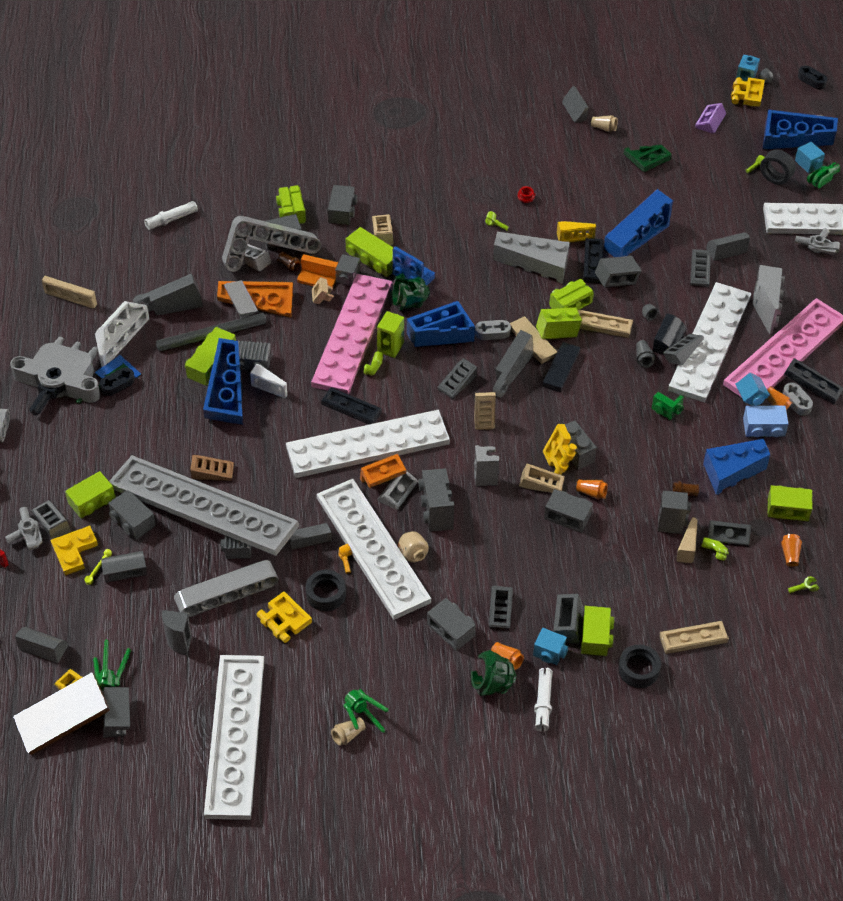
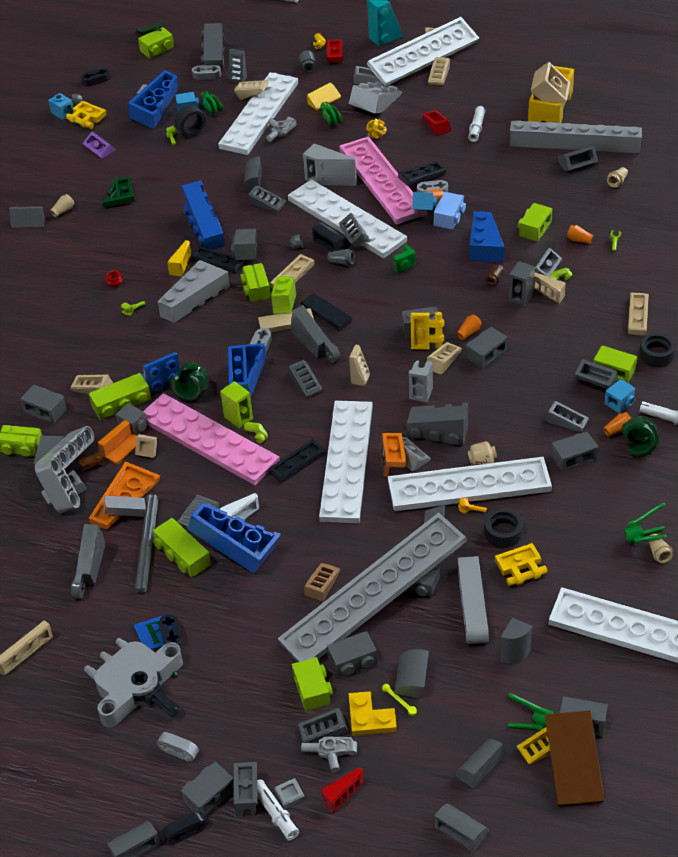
camera: 65 degrees left, 5 degrees down
(120, 329) = (106, 618): white wedge -> none

